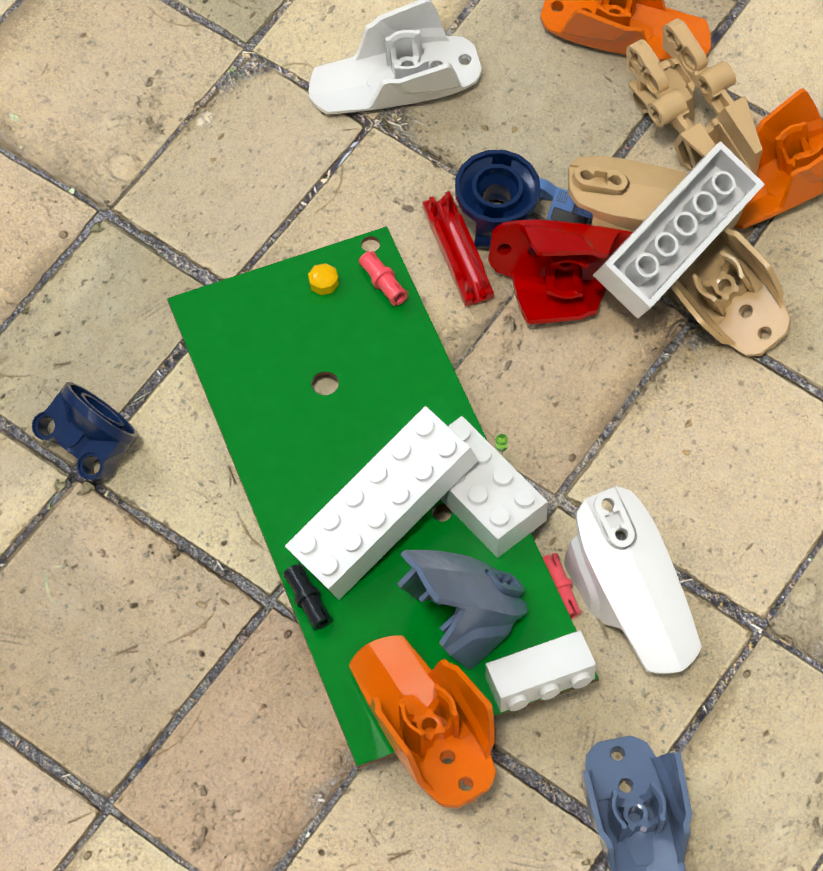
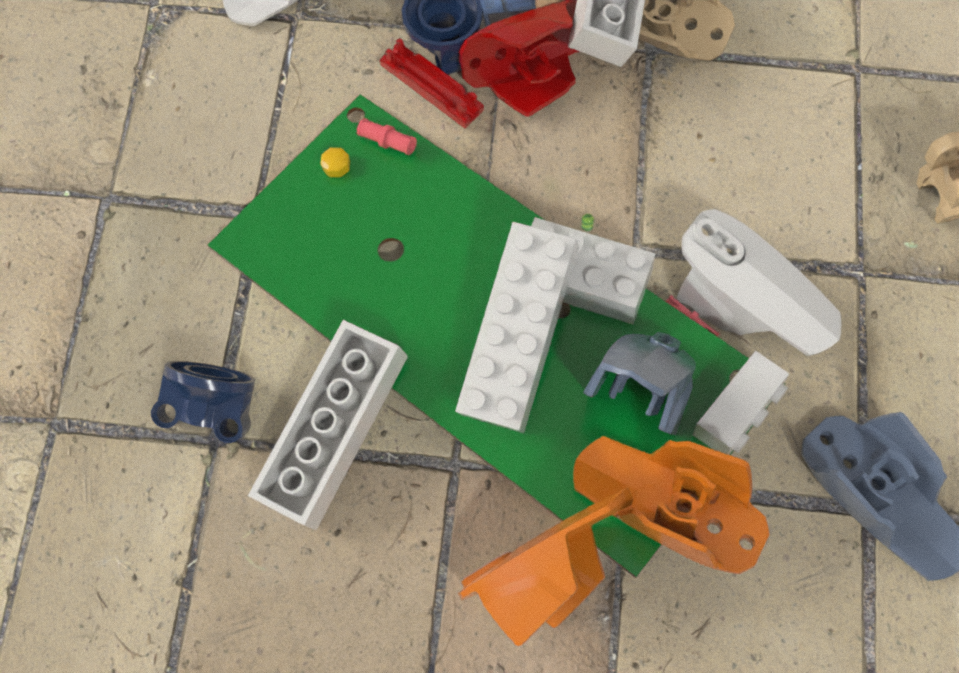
camera: 30 degrees left, 5 degrees up
(176, 505) = (328, 425): none -> white brick
(288, 721) = (545, 575): none -> orange piece
(307, 597) = (497, 445): black pin -> none

